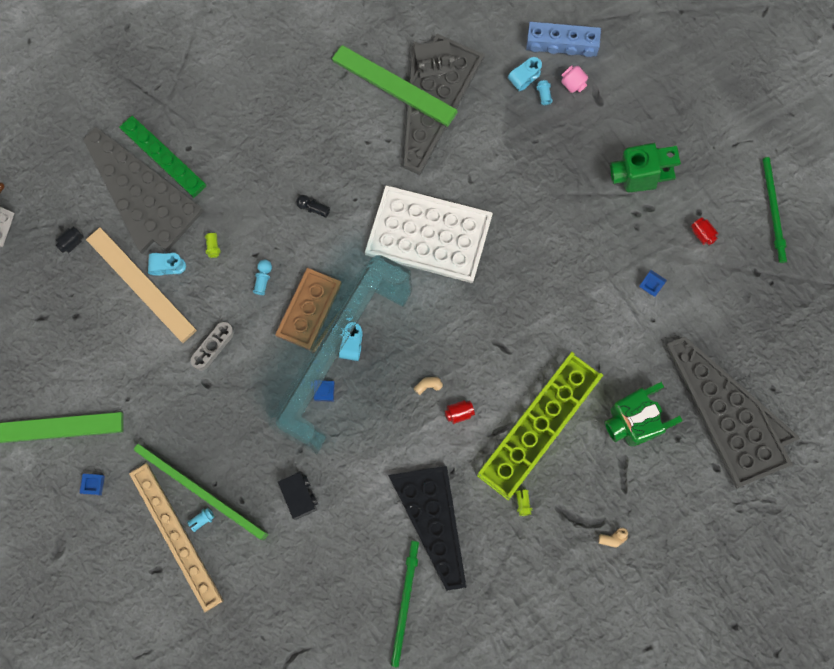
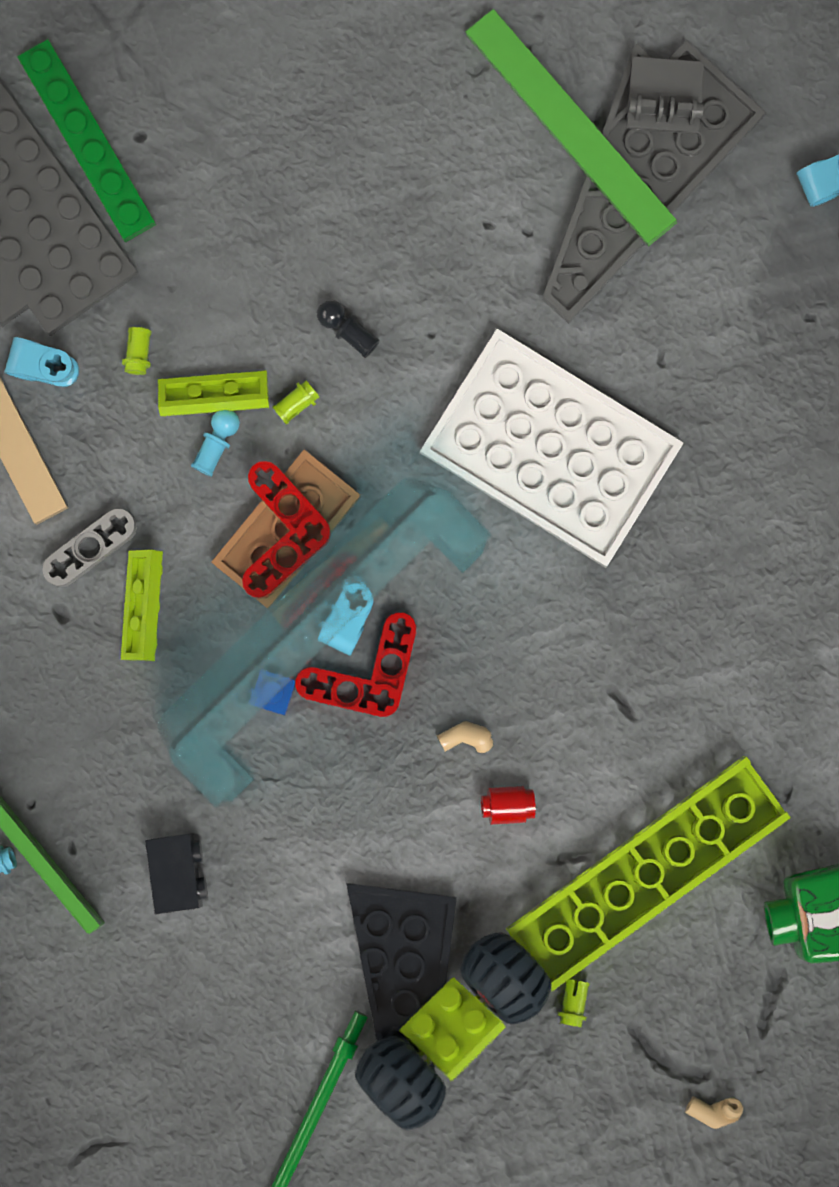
camera: 15 degrees right, 10 degrees up
(245, 366) = (141, 605): none -> lime plate
(254, 254) = (213, 393): none -> lime plate
(297, 247) = (296, 402): none -> lime pin
(312, 303) = (295, 523): none -> red beam
(376, 369) = (379, 680): none -> red beam
(483, 502) = (453, 1030): none -> black plate

